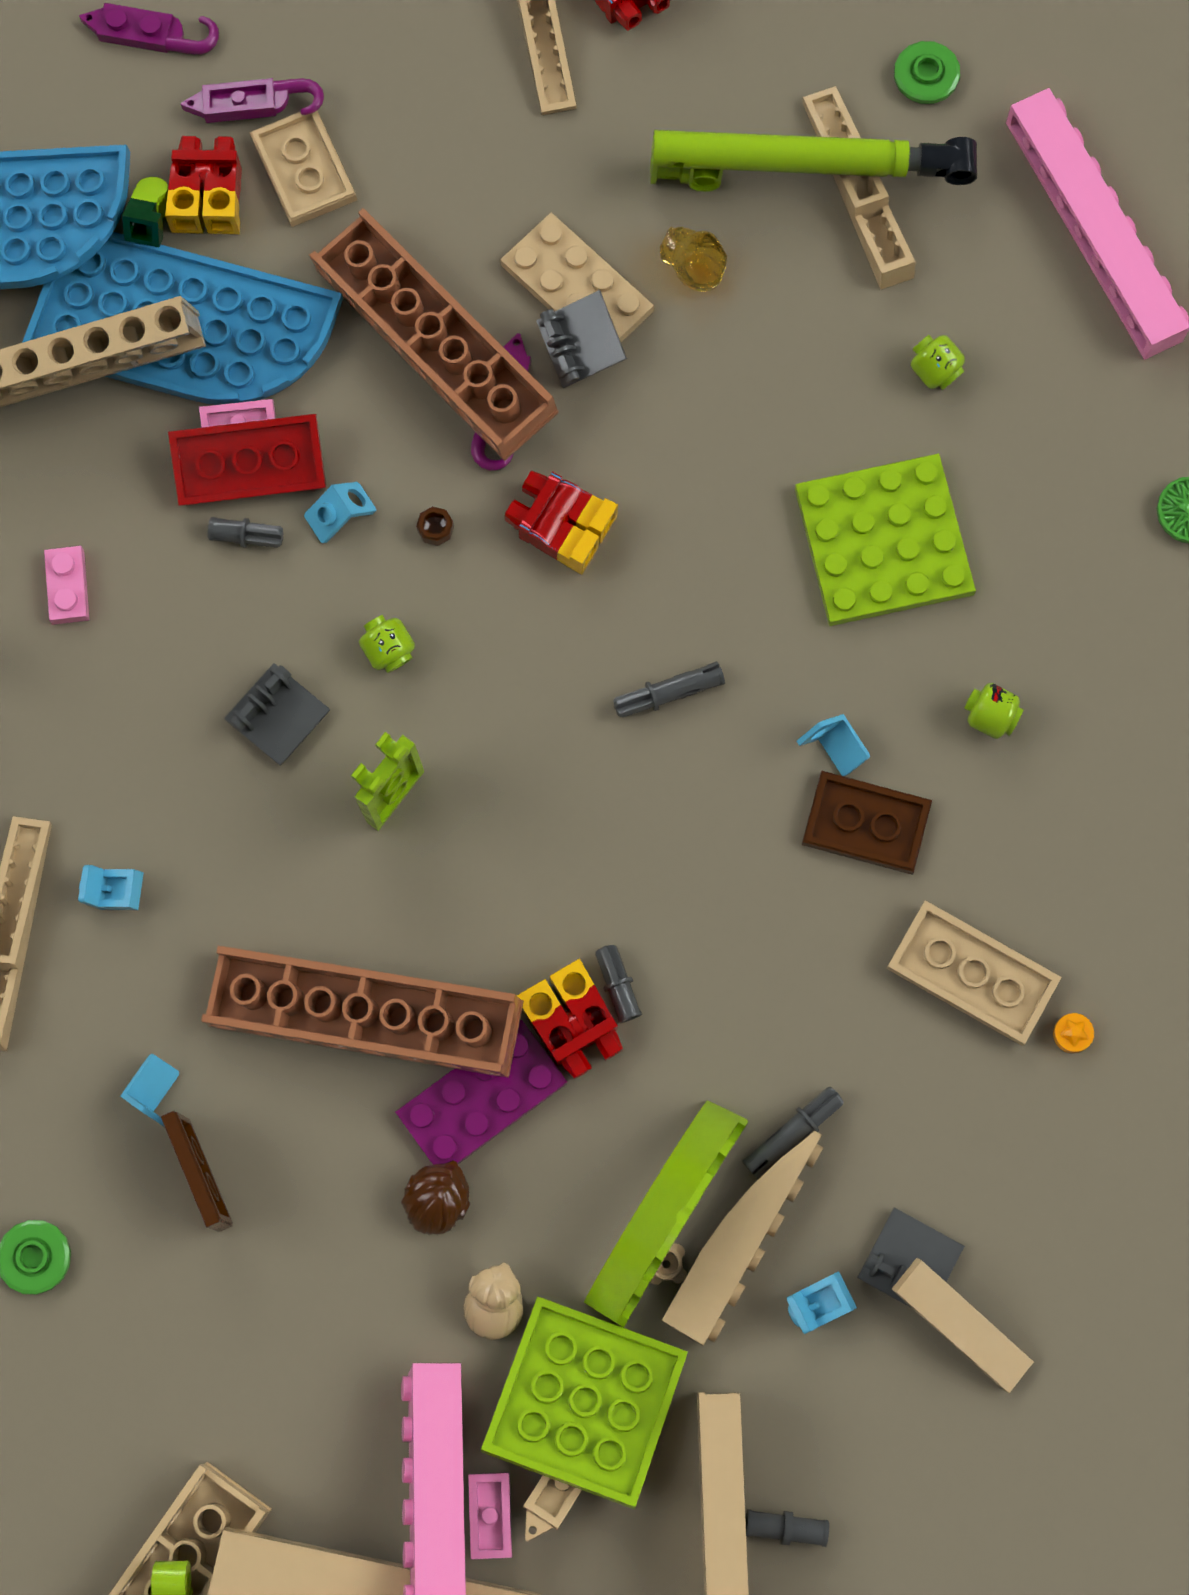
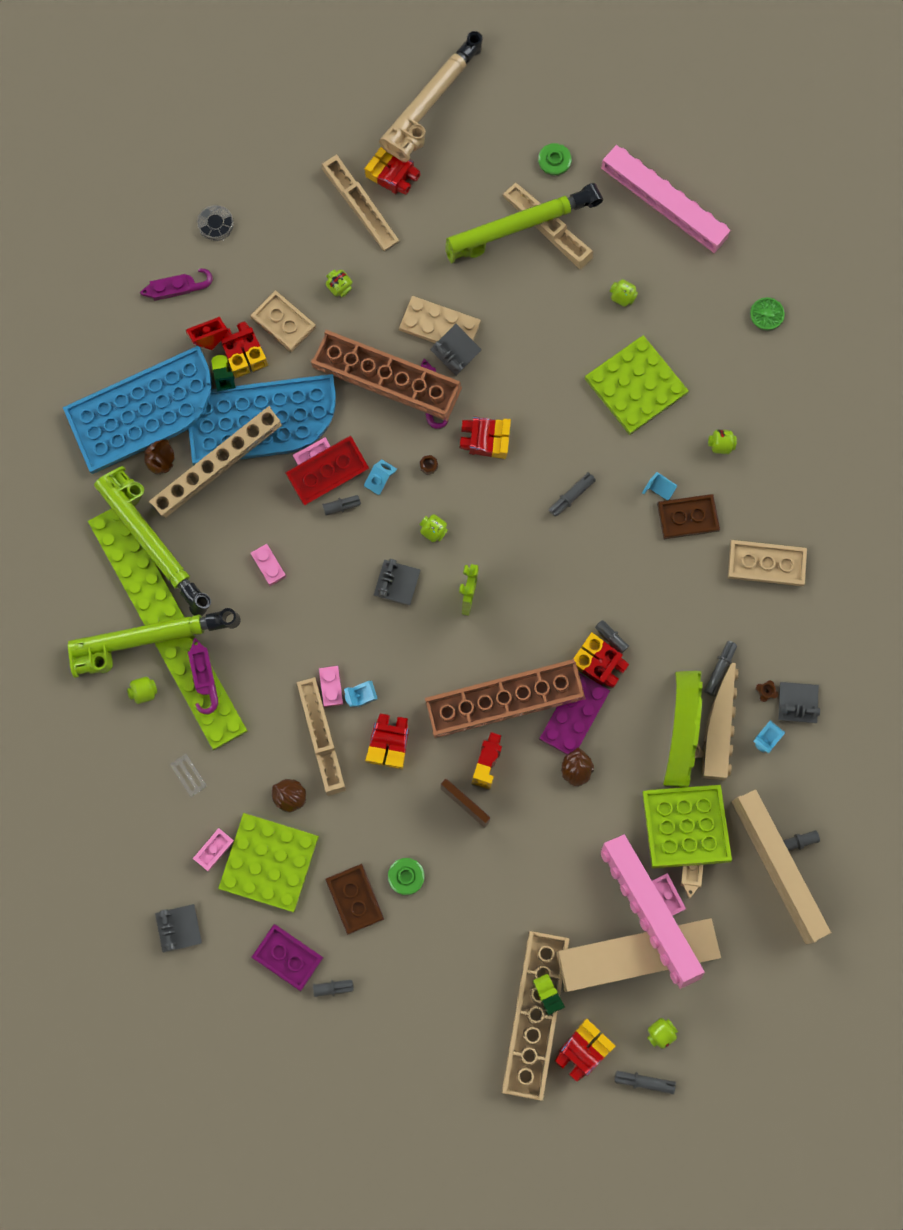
camera: 30 degrees left, 0 degrees up
(69, 850) = (331, 686): none -> bright pink plate
(117, 999) = (388, 736): none -> red hips
(150, 1086) = (422, 776): medium azure bracket -> none
(151, 131) = (207, 333): none -> red slope
(250, 99) = (243, 299): magenta plate -> none
(274, 1110) = (489, 753): none -> hips
(430, 137) = (338, 283): none -> lime head
(494, 1302) = (624, 802): tan hair -> none
(694, 257) = (490, 290): clear yellow hair -> none
(870, 1207) = (769, 685): none -> reddish brown plate
(962, 1325) = (834, 718): tan tile -> none
(1073, 1033) = (822, 571): light orange tile -> none

